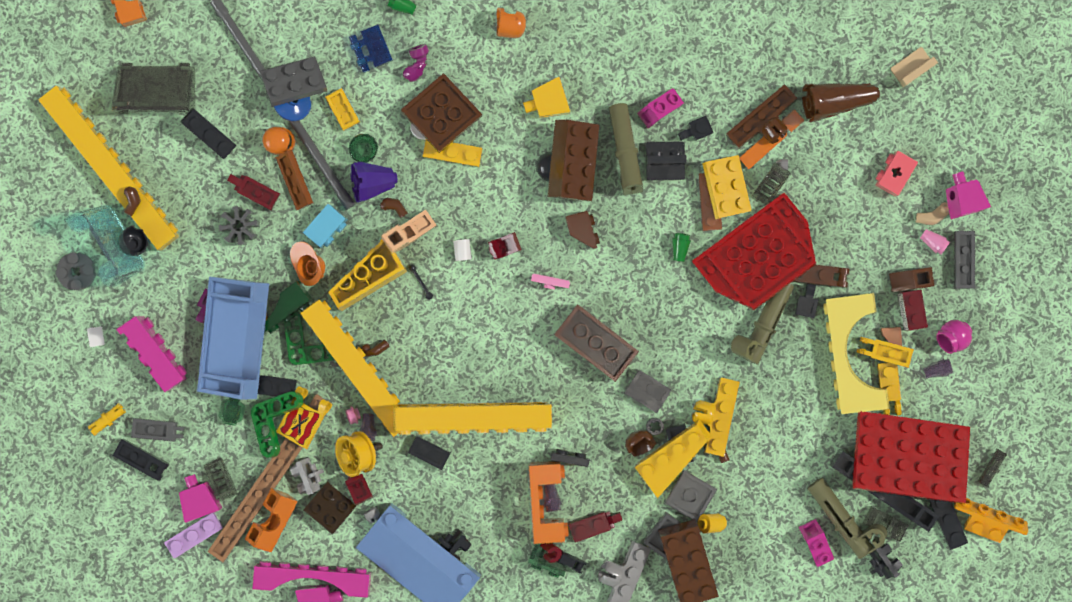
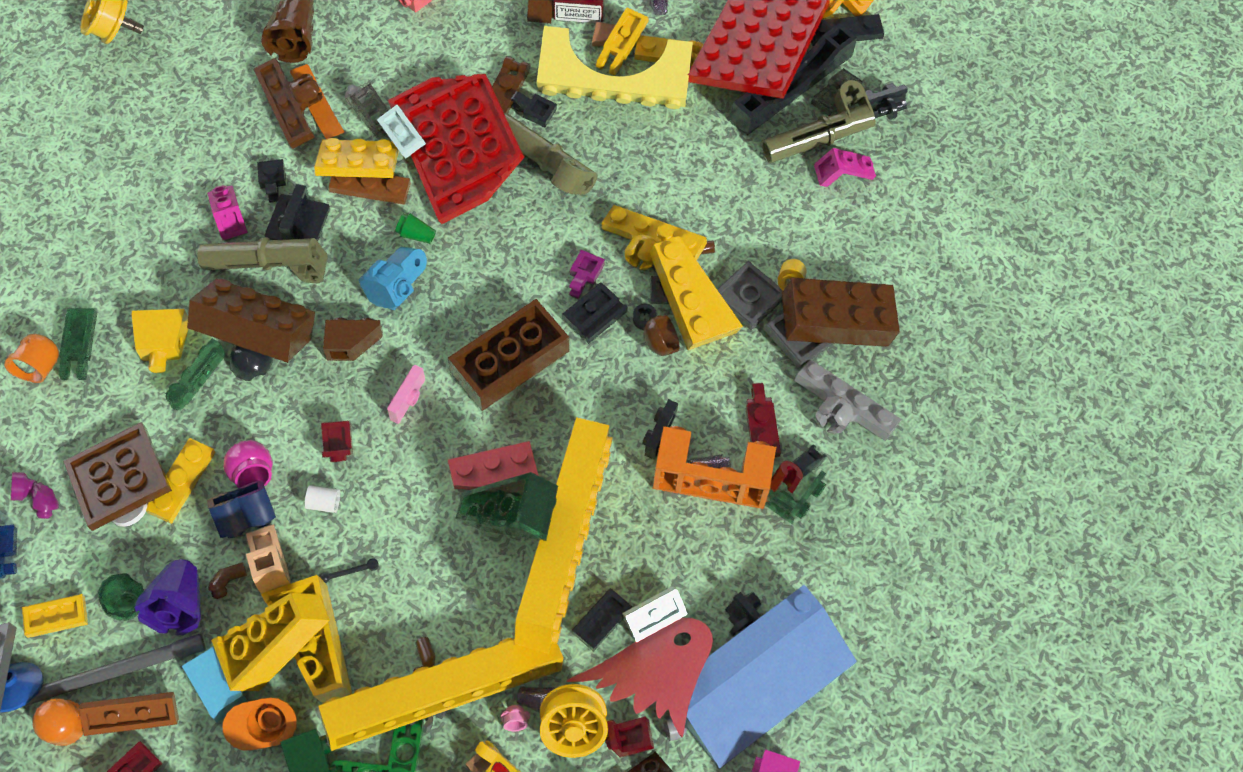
camera: 80 degrees left, 25 degrees down
(349, 251) = (268, 641): none -> yellow wedge
(403, 496) = (657, 670): none -> coral piece
(439, 201) = (241, 509): none -> dark blue brick
(441, 485) = (654, 613): none -> light aqua plate
(470, 195) = (248, 463): none -> dark pink piece
(473, 383) = (511, 506): none -> clear green wedge
(514, 357) = (492, 466): none -> coral wing
(527, 135) = (195, 375): none -> clear green hinge
(532, 45) = (77, 341): none -> clear green hinge
(631, 244) = (390, 281): none -> dark azure piece
(680, 376) = (584, 269): none -> magenta plate
(755, 213) = (401, 131): none -> light aqua plate

